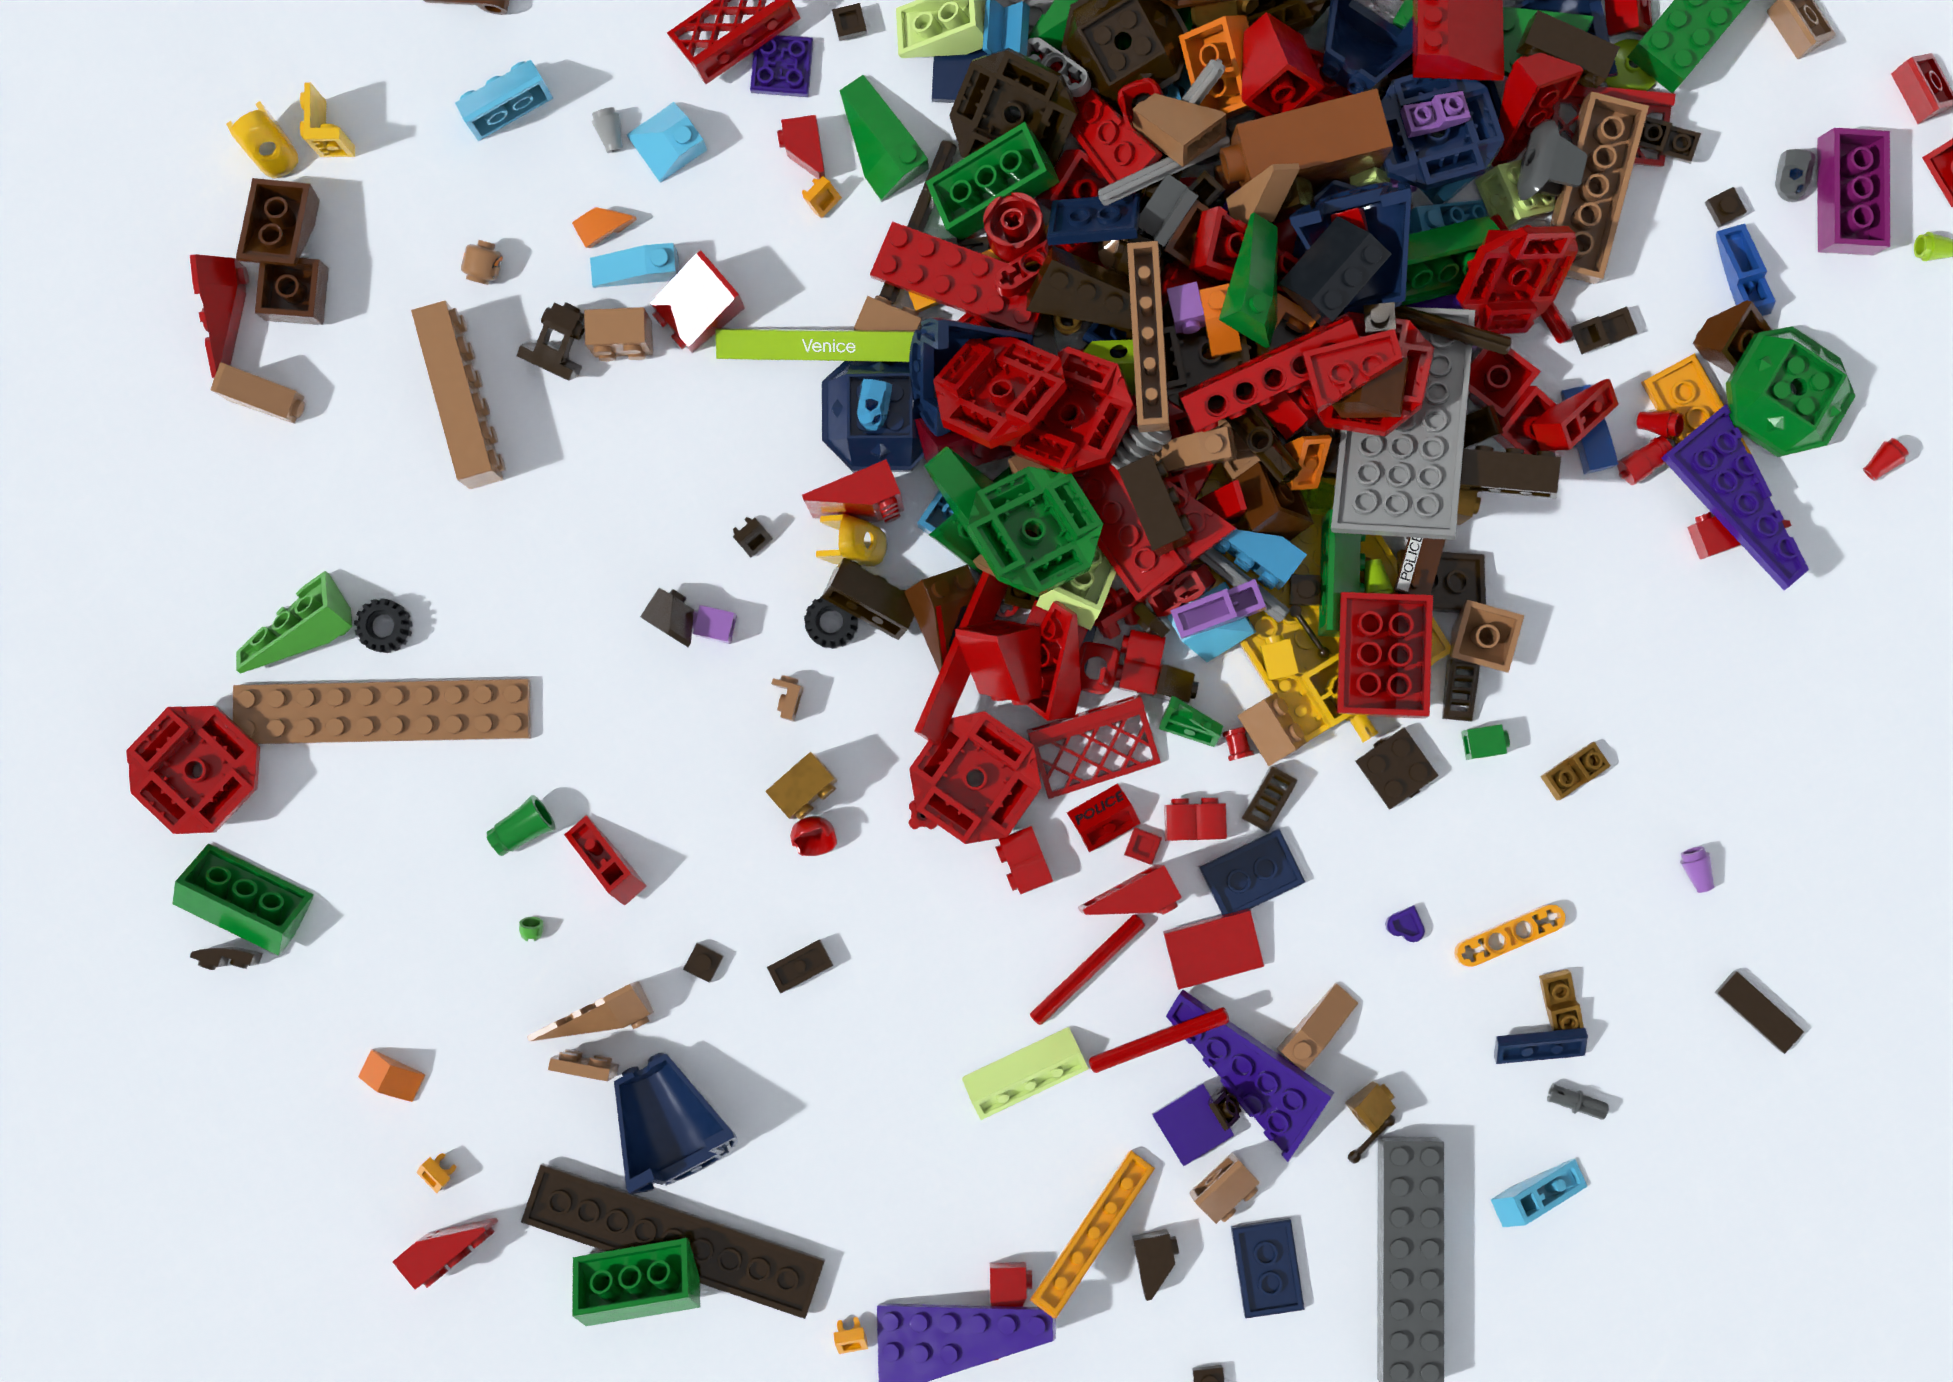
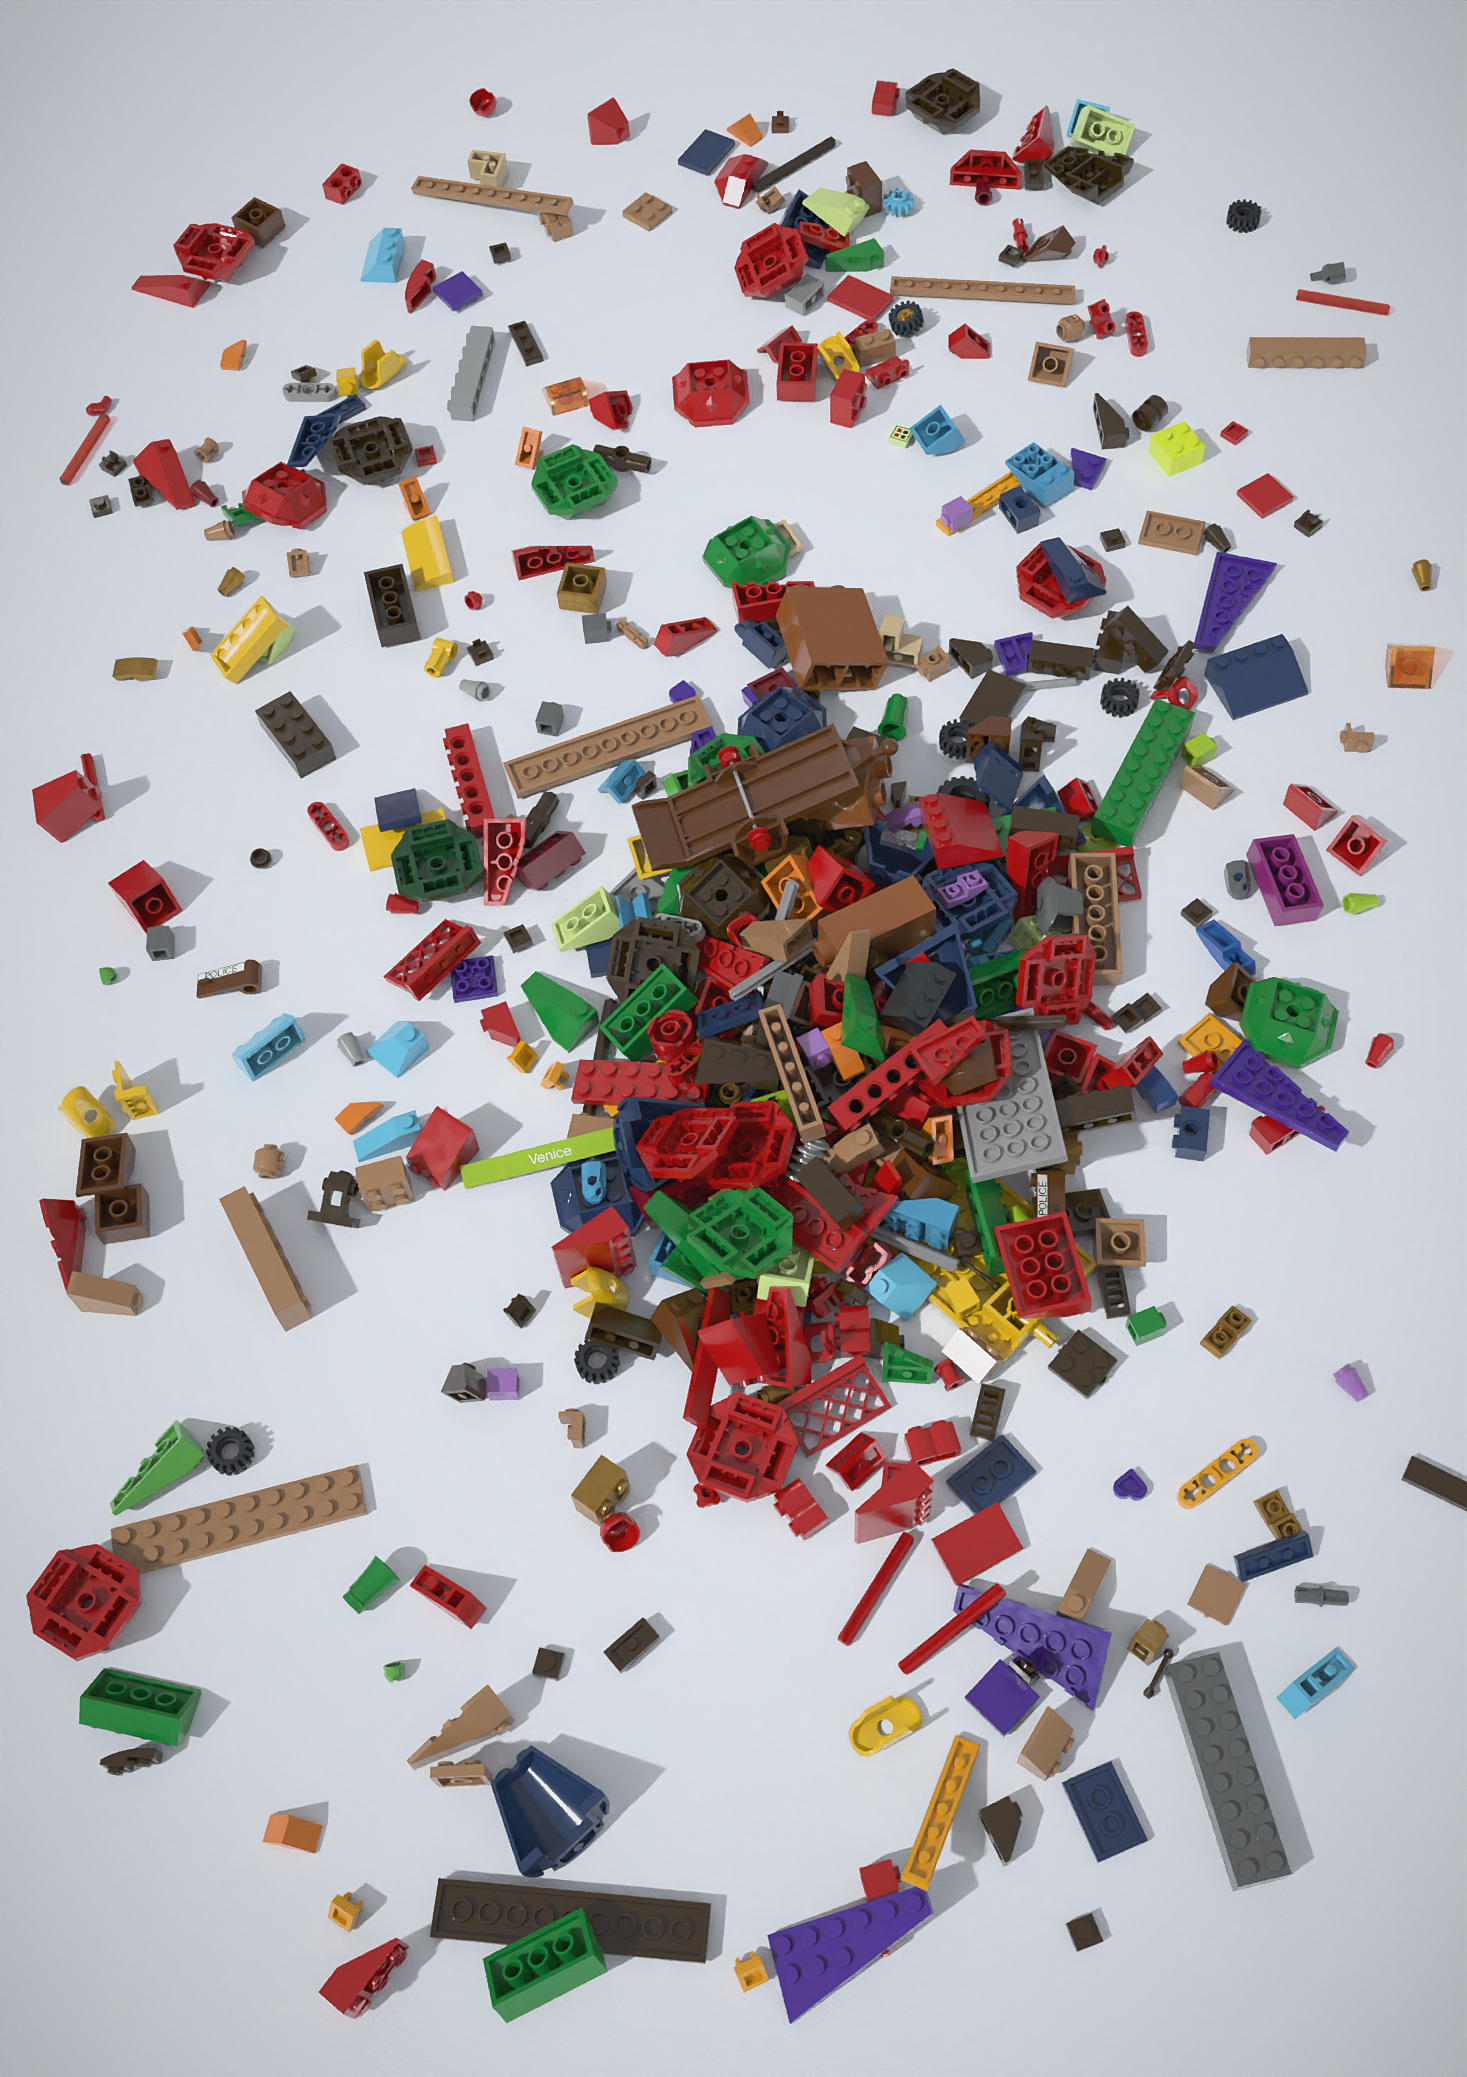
camera: 10 degrees left, 25 degrees down
(854, 231) = (552, 1076): none -> light orange tile
(1024, 718) = (774, 1394): none -> pearl gold cone
(1024, 1073) = (846, 1690): yellowish green panel -> none
(1081, 1122) = (900, 1711): none -> yellow piece
(1218, 609) = (903, 1267): medium lavender slope -> none
(1462, 1069) = (1216, 1595): none -> medium nougat piece
(1630, 499) = (1191, 1146): none -> dark blue brick
(1668, 140) = (1138, 878): dark brown slope -> none

